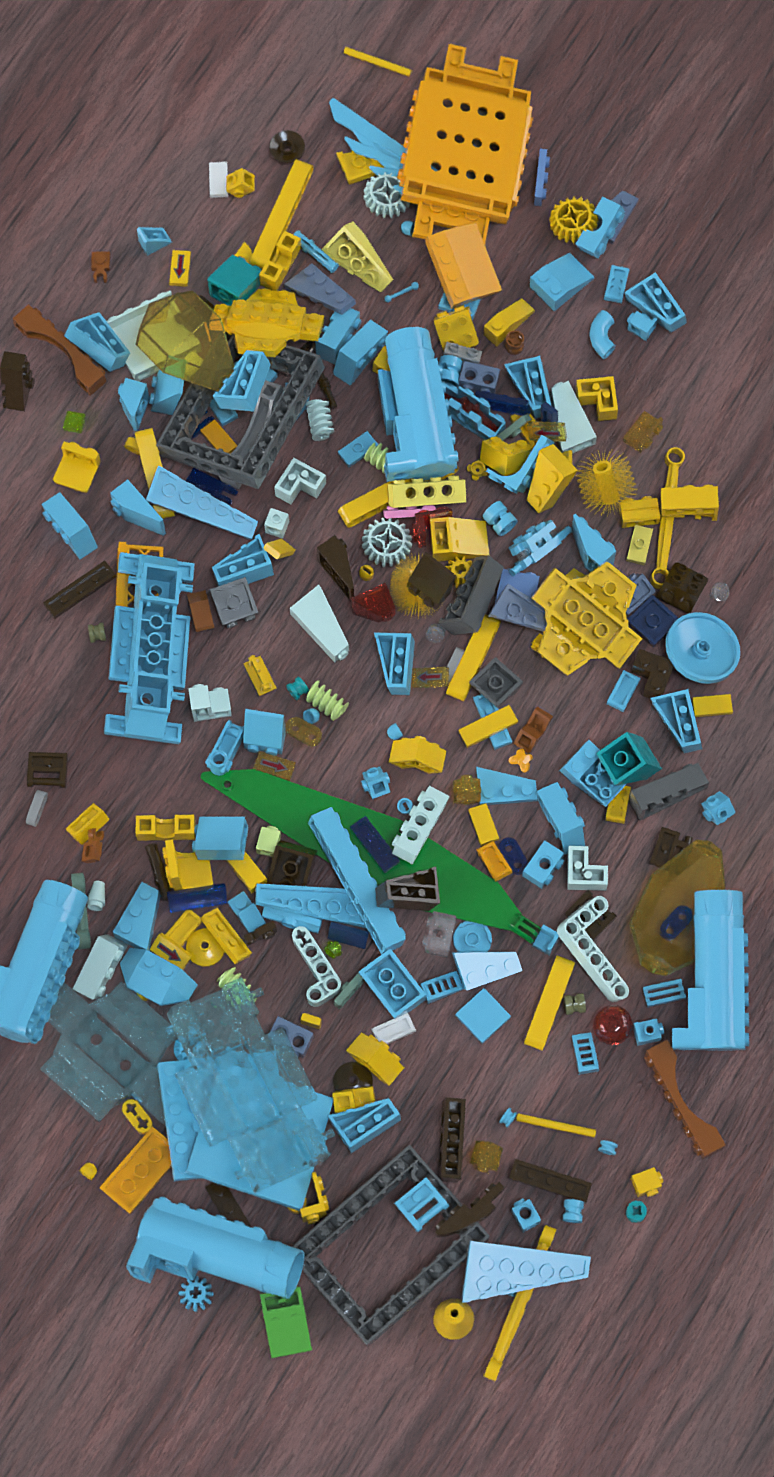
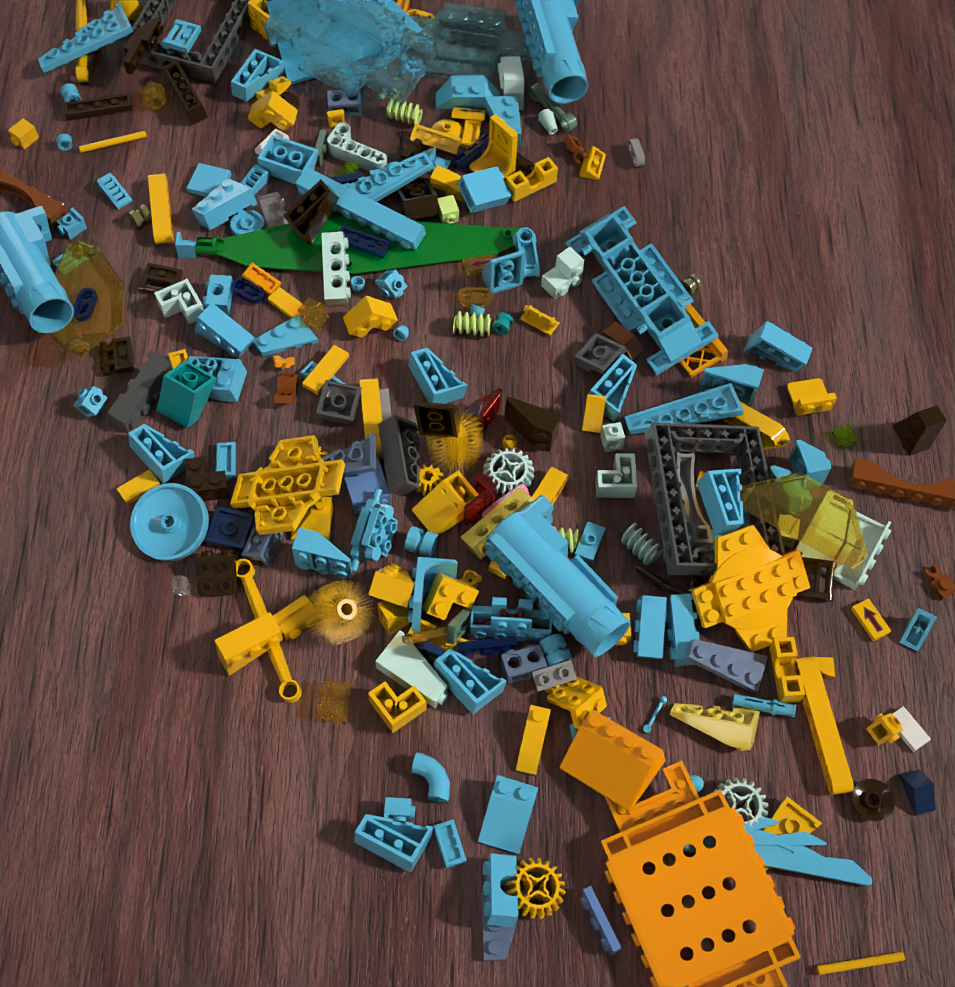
camera: 145 degrees right, 10 degrees down
(47, 763) = (651, 184): dark brown plate -> none
(79, 589) = (730, 308): dark brown plate -> none
(98, 341) = (884, 503): medium azure wedge -> none
(234, 280) = (812, 625): teal slope -> none
(247, 138) = (919, 791): none -> dark blue slope
(320, 623) = (517, 379): light aqua slope -> none
(430, 677) = (398, 381): clear yellow tile -> none
(508, 1117) = (151, 127): medium azure bush -> none
(514, 338) = (512, 714): dark orange wheel -> none
(525, 1224) = (104, 78): medium azure brick -> none
(591, 950) = (160, 245): light aqua beam -> none
(612, 1025) = (102, 218): clear red cylinder -> none
(636, 1215) = (22, 112): teal wheel -> none
(639, 545) = (279, 590): light yellow plate -> none

